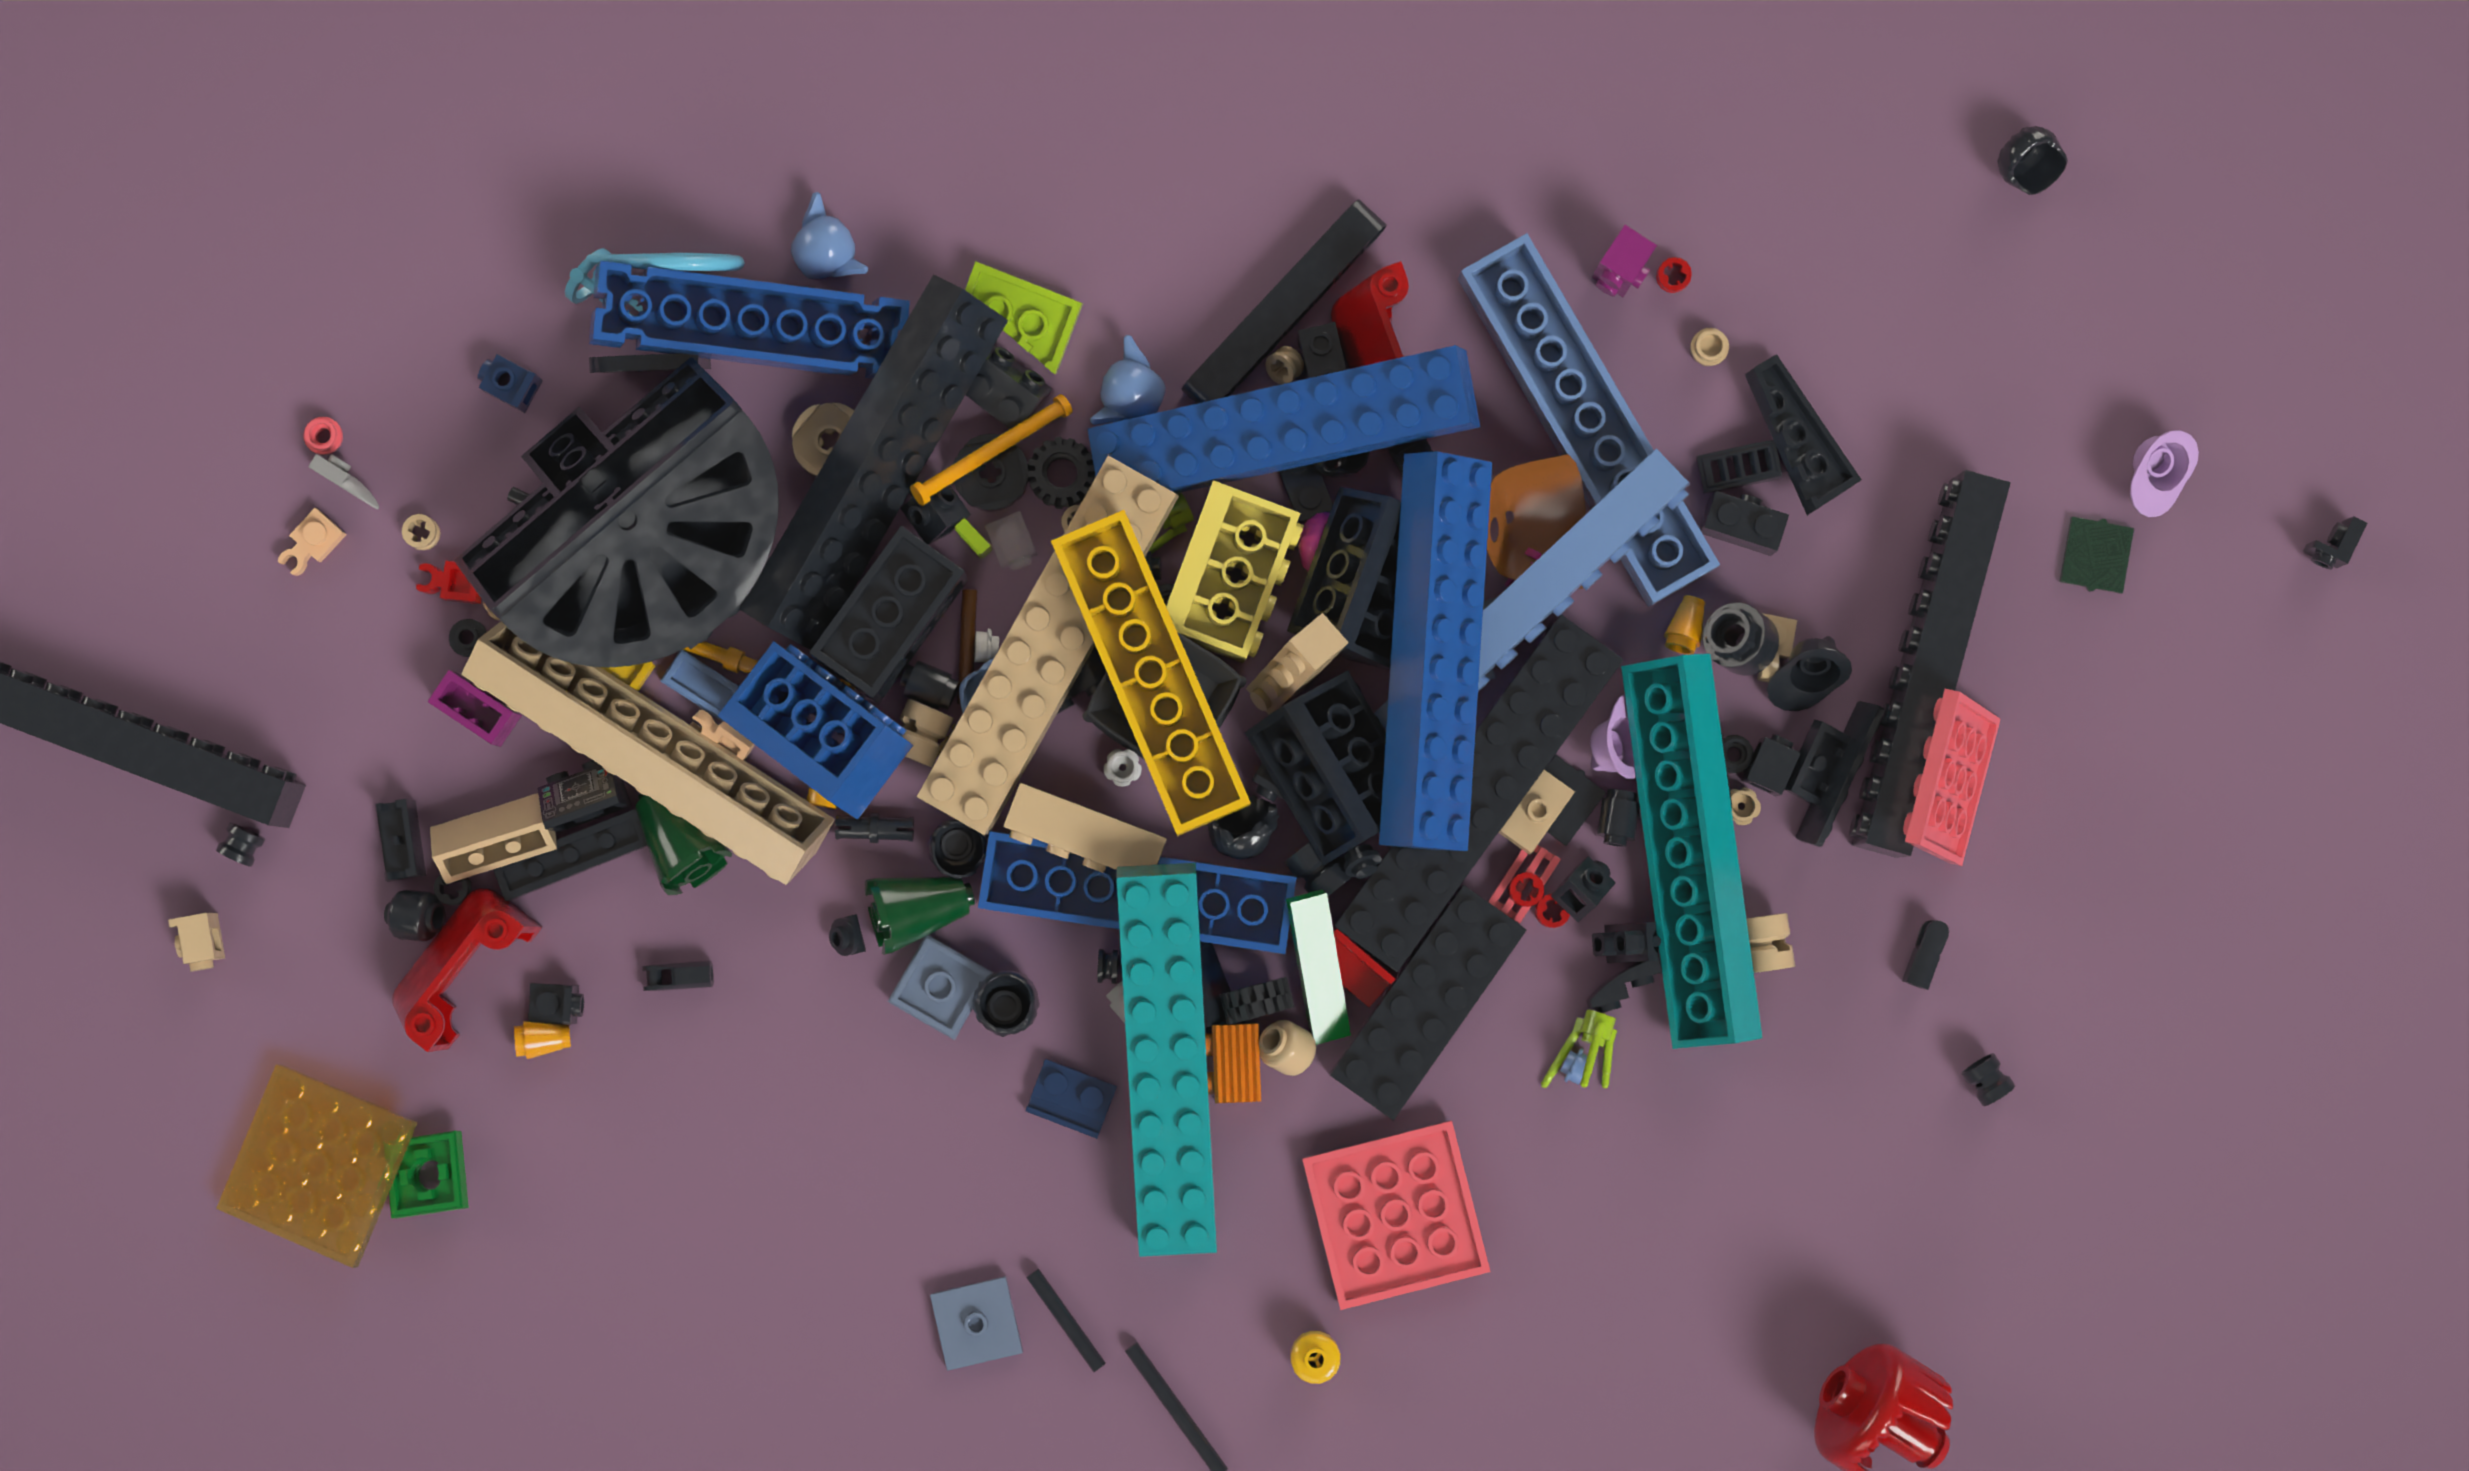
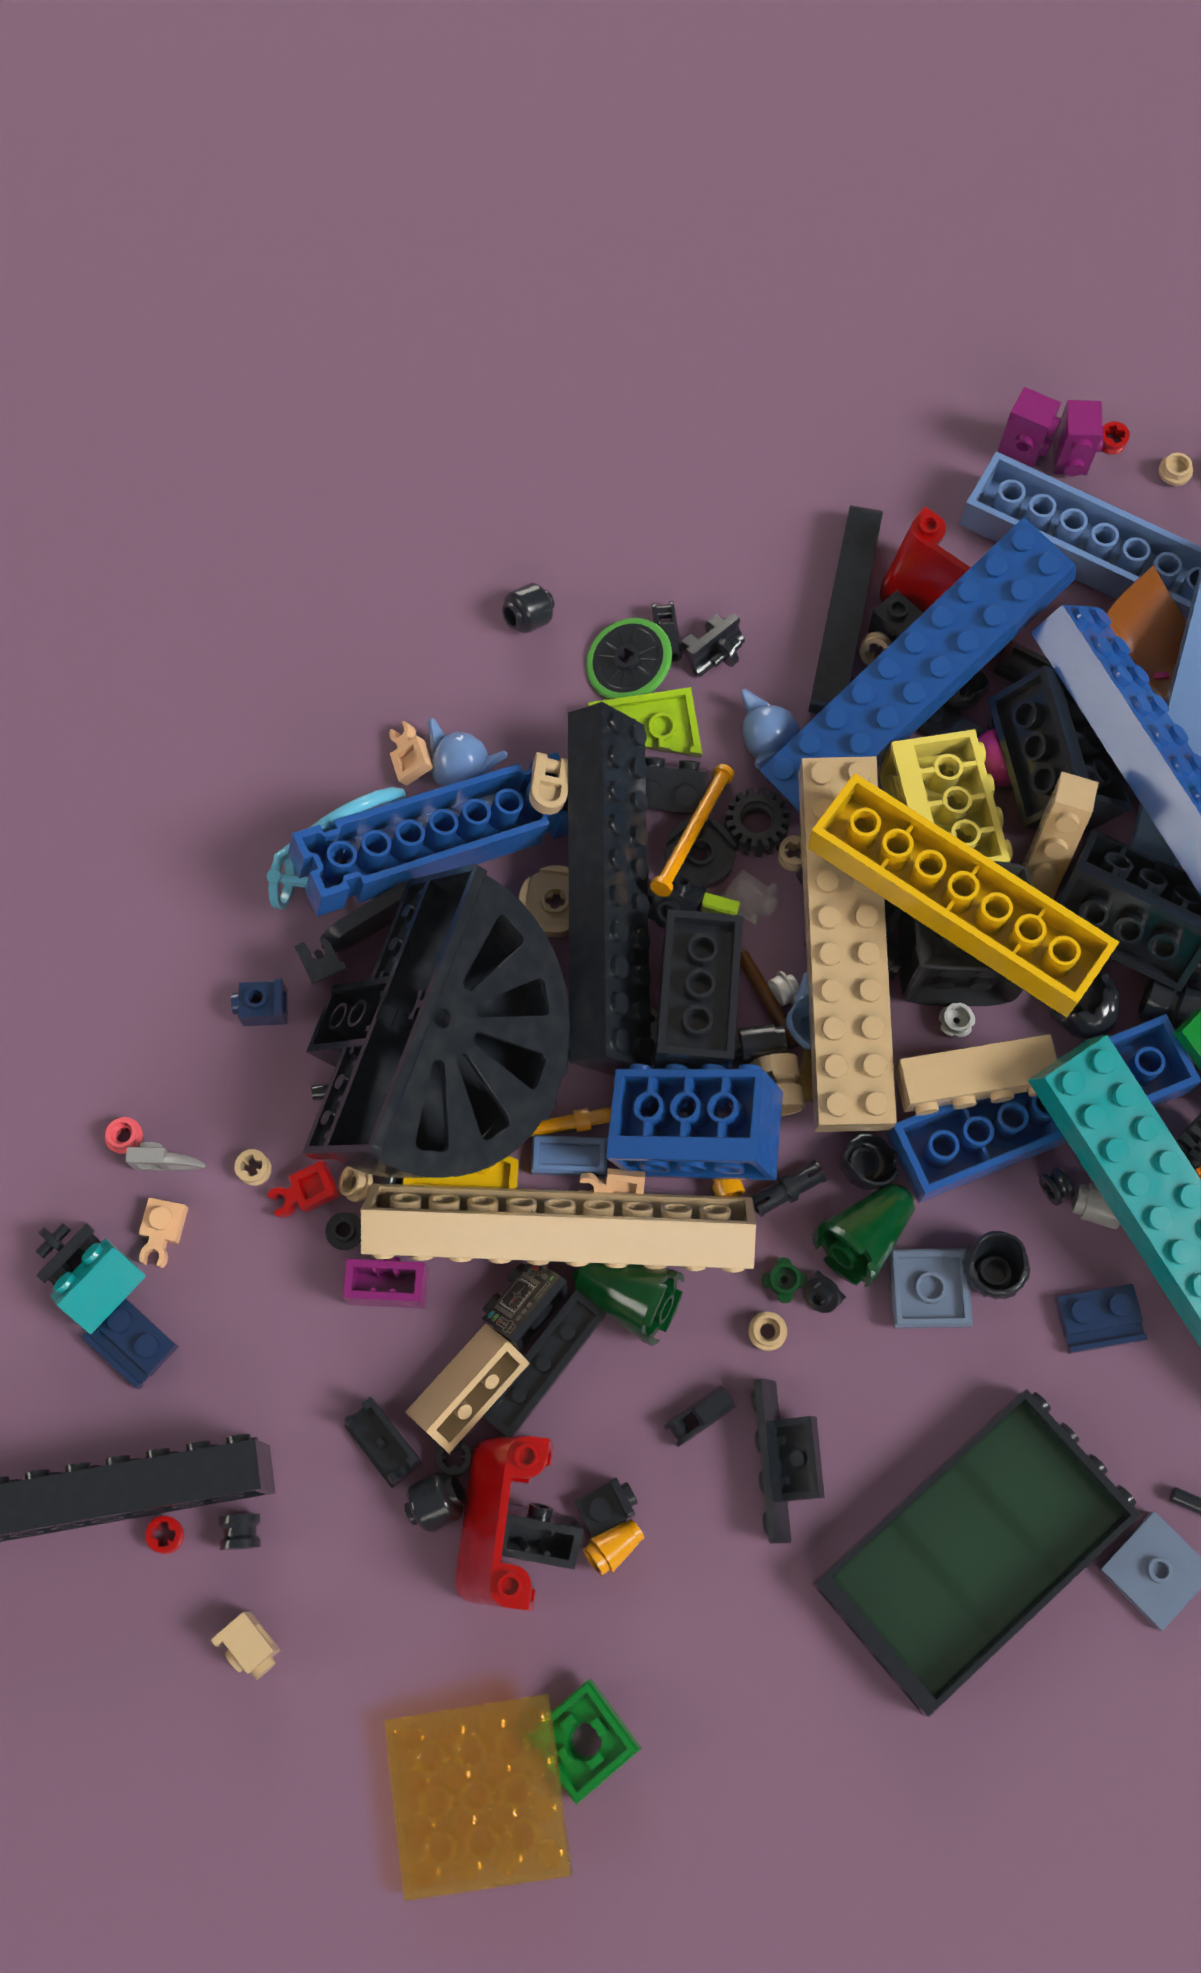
camera: 25 degrees left, 15 degrees down
(166, 812) = (155, 1544): none -> red bush
(203, 525) = (57, 1265): none -> black hips
(228, 563) = (96, 1285): none -> teal brick
(233, 626) = (131, 1343): none -> dark blue plate
(480, 994) = (542, 1536): none -> black brick
(573, 382) = (324, 965): none -> black hinge
(725, 1055) = (788, 1460): none -> black bracket
(767, 937) = (773, 1320): none -> tan plate
(781, 216) = (411, 756): none -> light nougat plate
(811, 900) = (773, 1280): none -> dark green plate
(837, 1218) = (976, 1550): none -> clear green window
(870, 343) = (548, 792): none -> tan plate
(980, 126) = (528, 608): none -> black head
(1042, 213) = (613, 647): none -> black wheel
(1099, 231) = (669, 628): none -> black bar
(1137, 272) = (716, 646): none -> black hips
(1584, 223) = (1030, 427): none -> magenta brick

